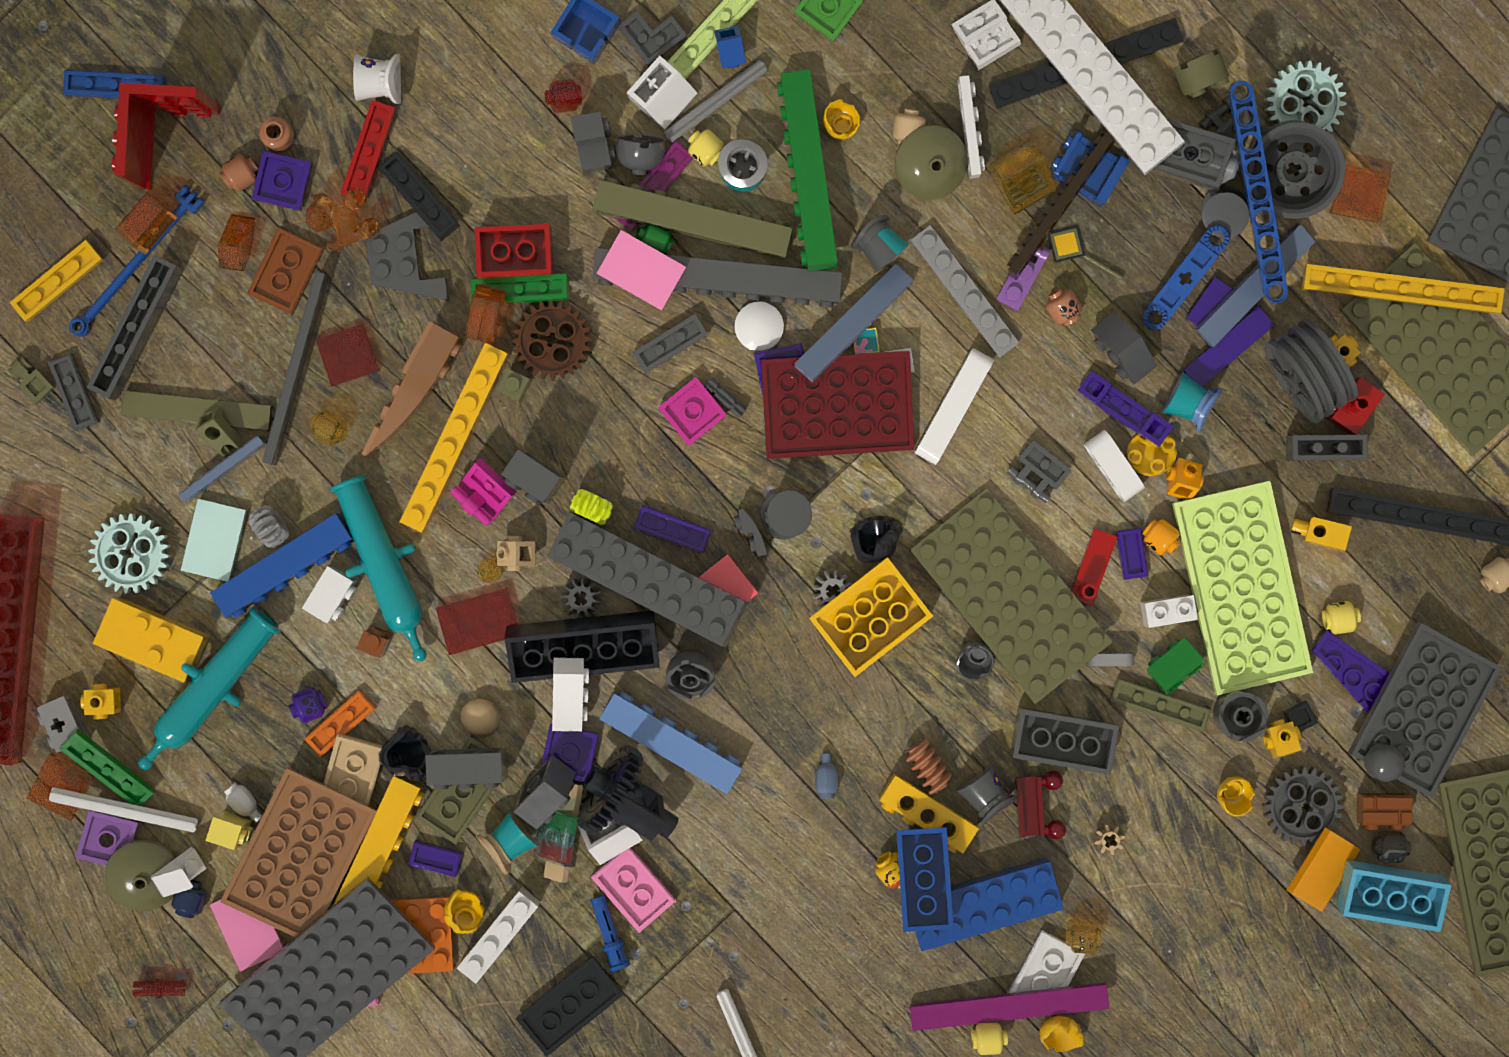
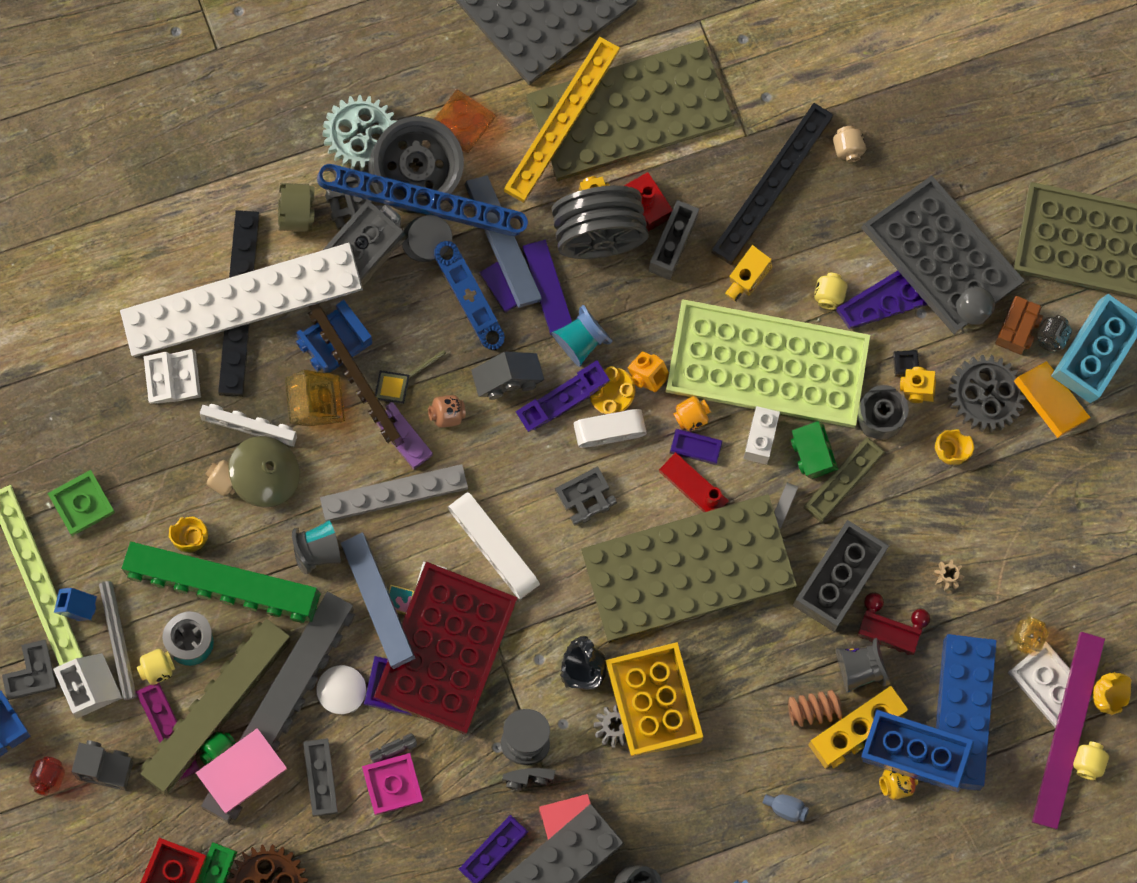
camera: 75 degrees left, 15 degrees down
(640, 153) = (132, 727): dark grey cylinder -> none
(975, 661) = (734, 624): dark grey hair -> none

